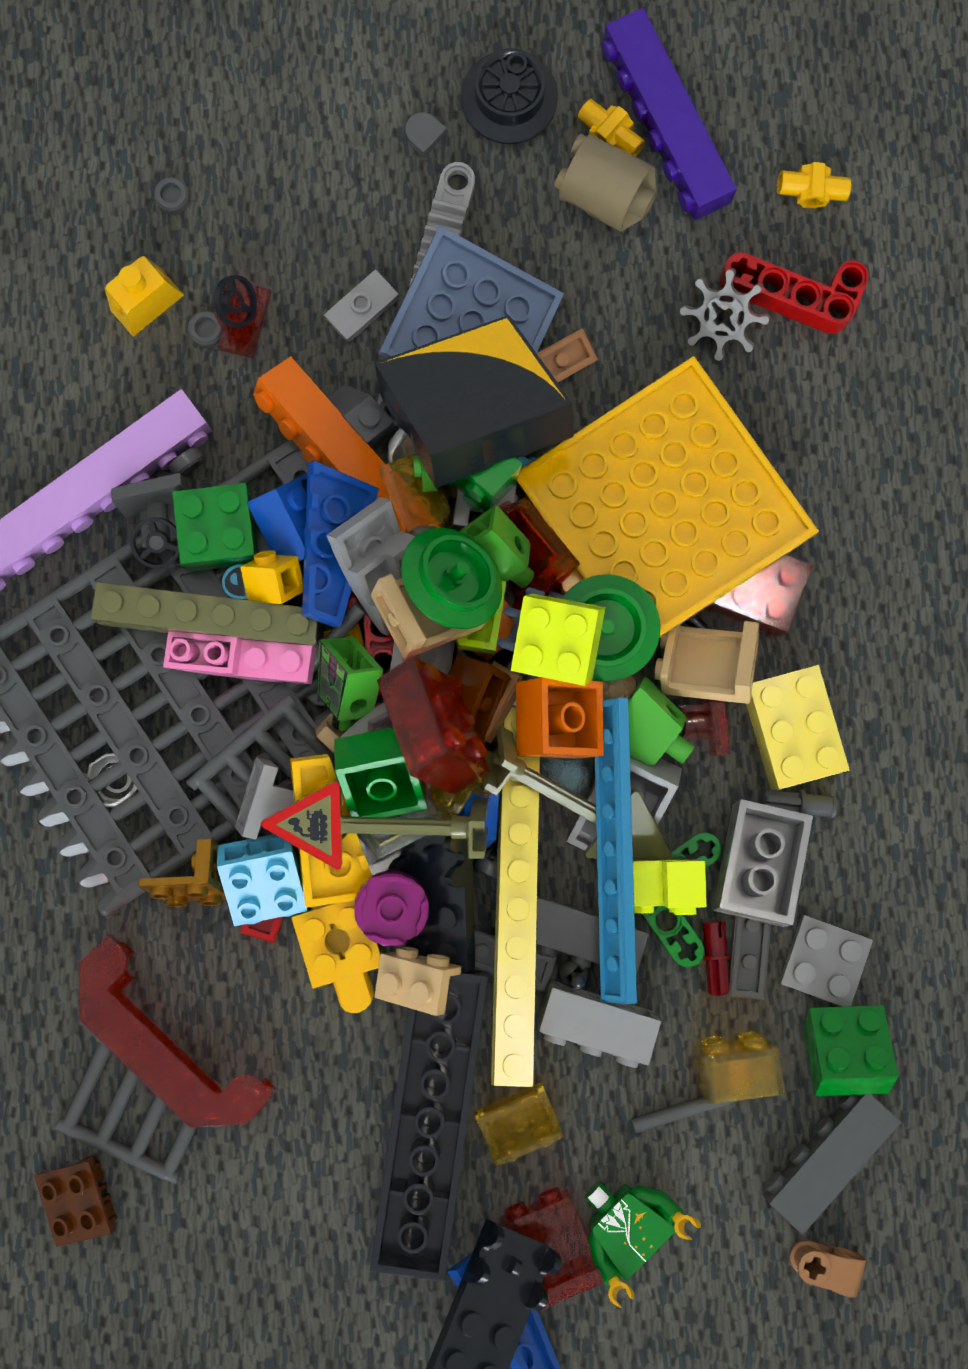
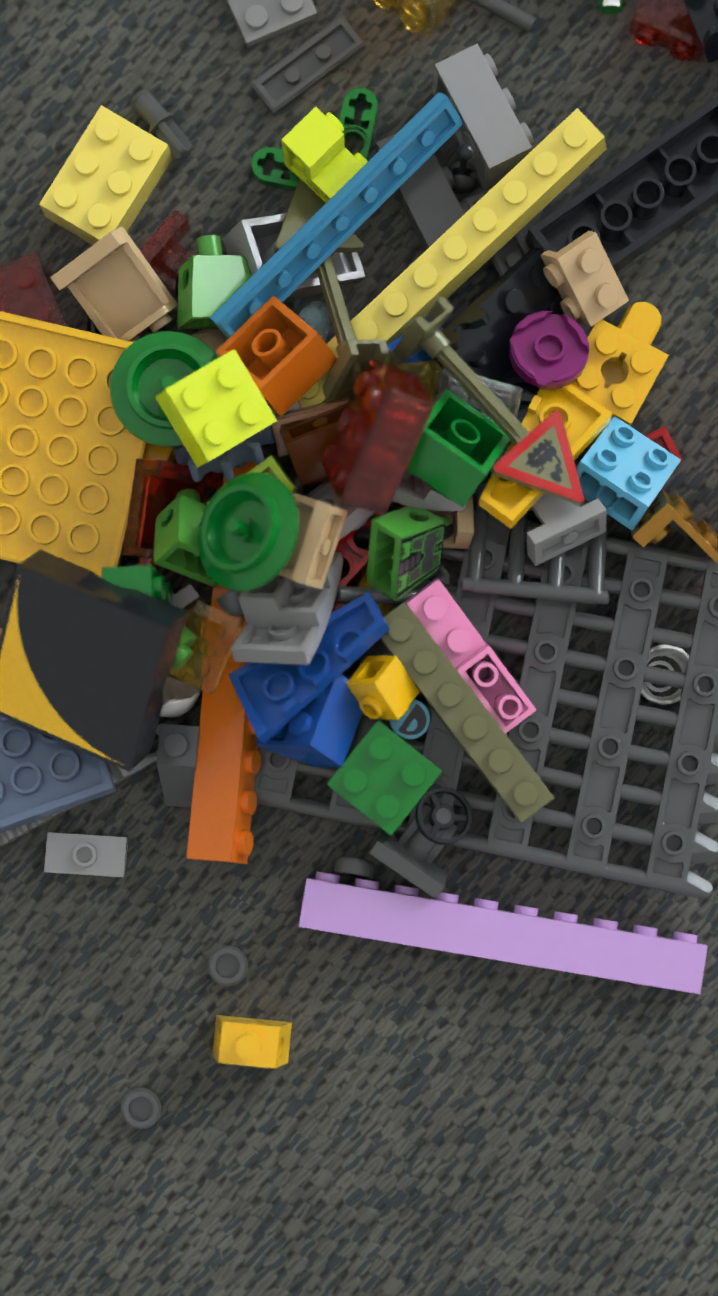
camera: 130 degrees left, 0 degrees up
(240, 314) = (189, 941): clear red piece -> none
(519, 1124) = (618, 106): clear yellow bracket -> none
(716, 958) = (344, 79): dark red axle -> none
(762, 863) = (238, 106): light grey brick -> none

